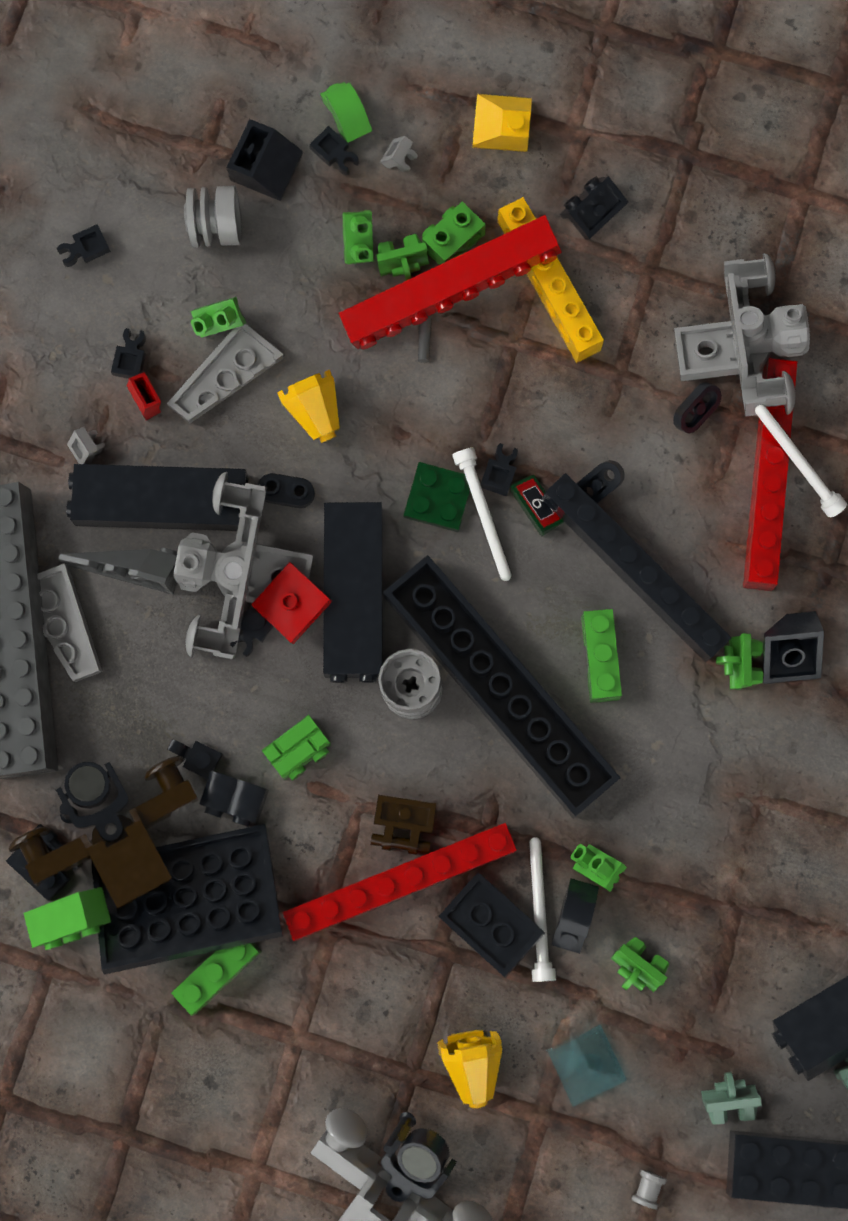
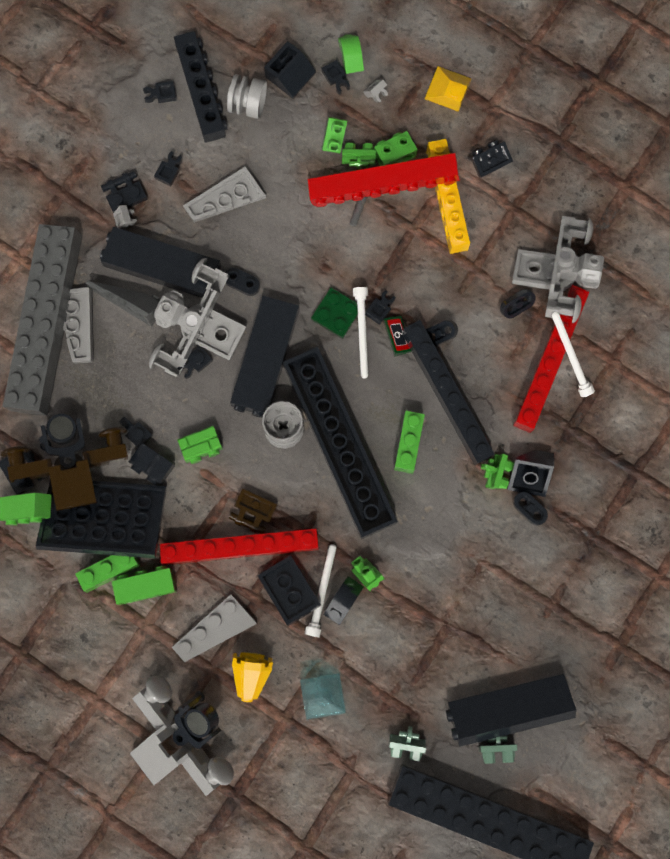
camera: 10 degrees right, 0 degrees up
(80, 413) = (129, 196): none -> black plate
(98, 167) = (190, 43): none -> black brick
(134, 385) = (166, 188): red piece -> none
(217, 317) = (230, 160): bright green hips -> none
(276, 980) = (143, 585): none -> bright green brick
(291, 603) = (223, 352): red plate -> none
(313, 405) = (274, 233): yellow cone -> none
(402, 1009) = (218, 626): none -> light grey wing
(636, 969) = (372, 646): bright green hips -> none
(648, 1189) = (338, 785): light grey bush -> none
(805, 700) = (532, 506): none -> black plate

